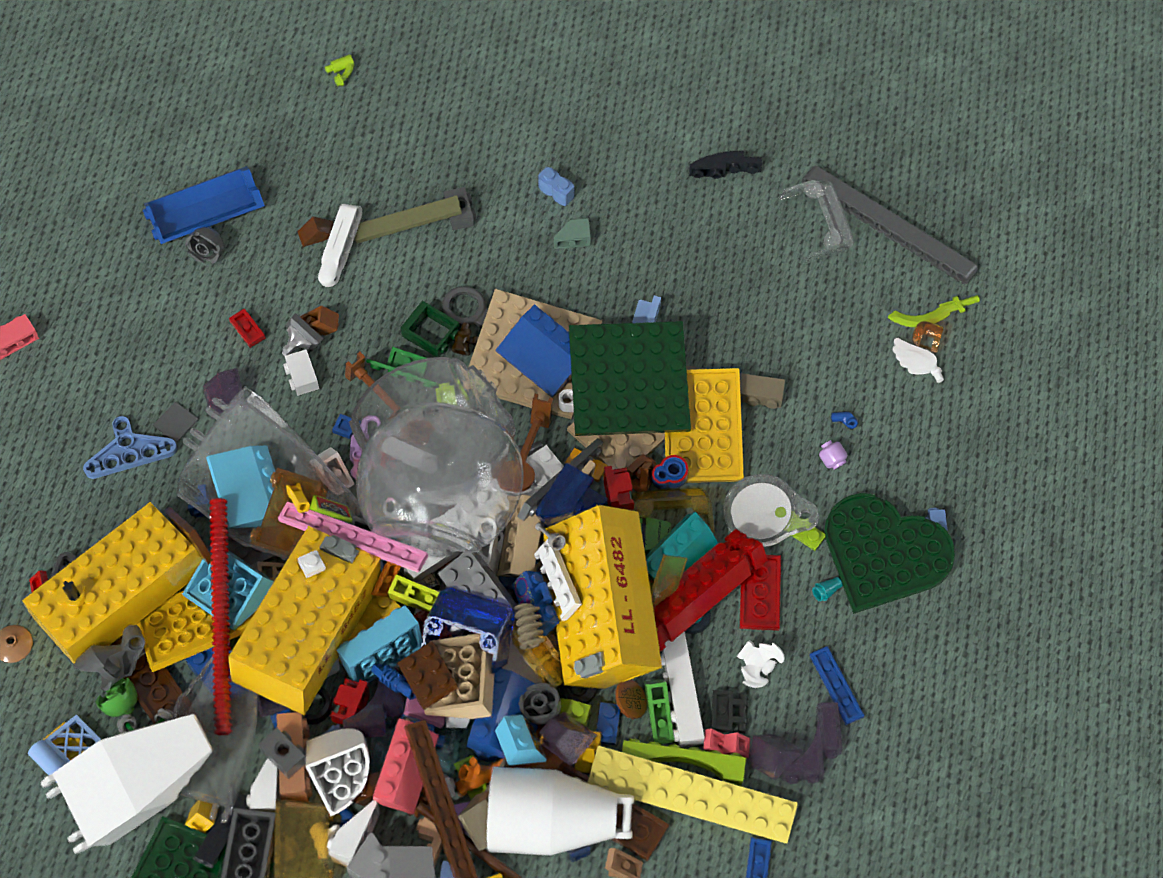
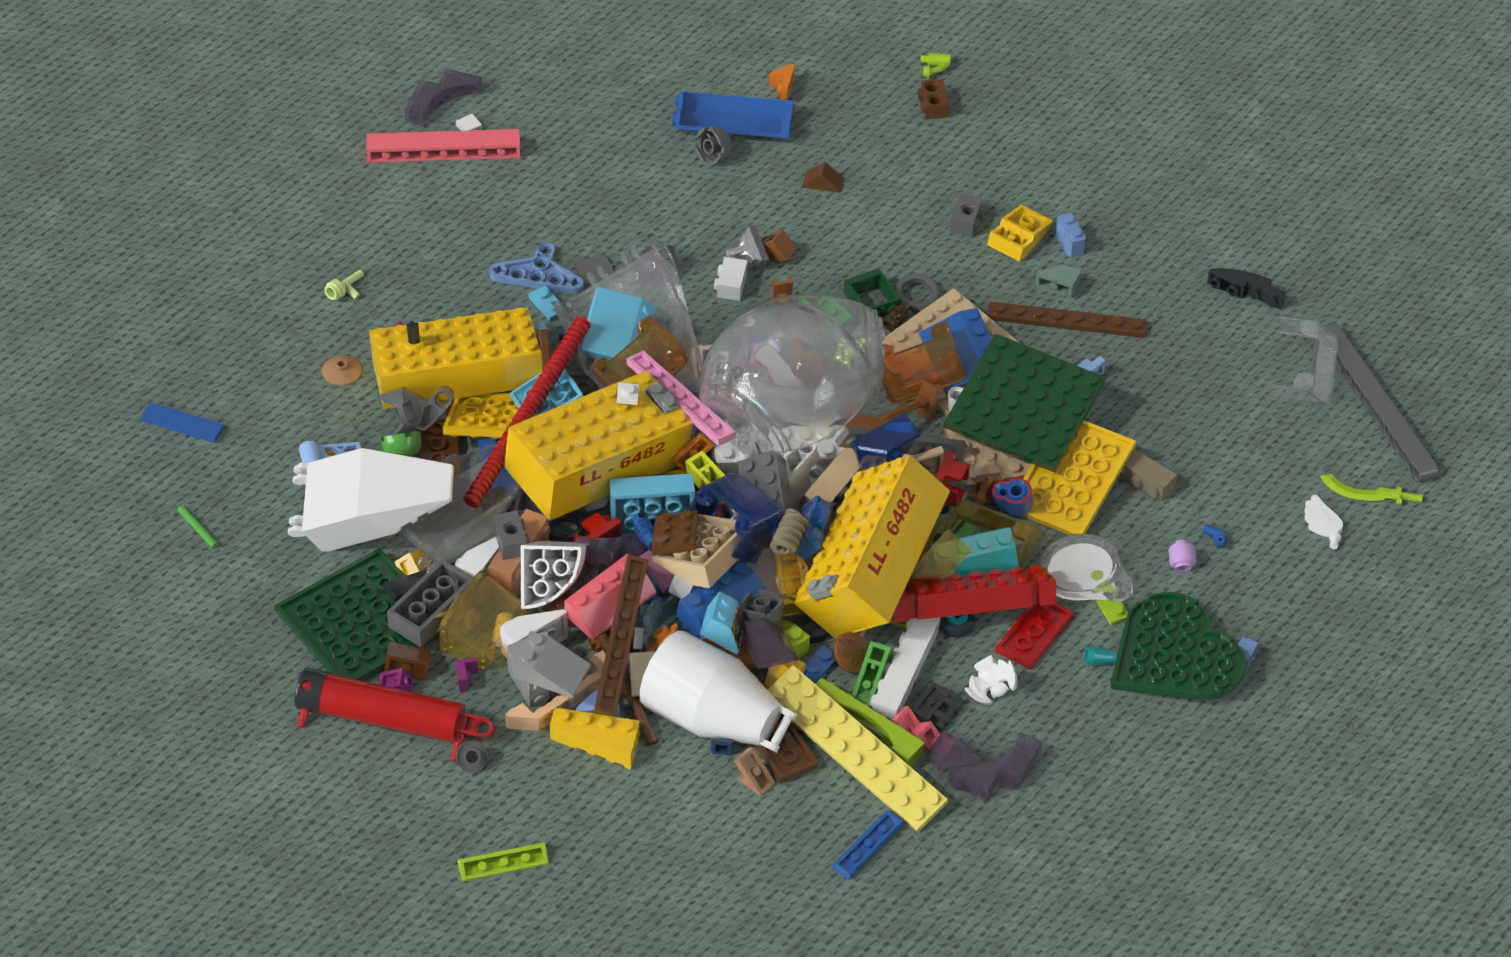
camera: 30 degrees right, 15 degrees down
(155, 478) = (542, 299): none -> medium azure plate
(223, 147) = (783, 80): none -> orange slope
(247, 328) = (707, 225): red plate -> none
(298, 497) = (654, 350): yellow bar -> none
(330, 508) = (673, 367): slope -> none
(339, 244) = (836, 195): white piece -> none
(359, 102) = (933, 98): none -> reddish brown brick
(408, 219) = (911, 201): olive tile -> none
(512, 203) = (1019, 232): none -> yellow slope
(524, 376) = (932, 358): none -> clear orange windscreen
(555, 540) = (857, 479): light grey hinge -> none
(559, 580) = (841, 509): white hinge -> none
(600, 269) = (1067, 319): none -> reddish brown plate
(836, 685) = (1053, 735): blue tile -> none
(930, 329) = (1347, 497): clear orange helmet -> none

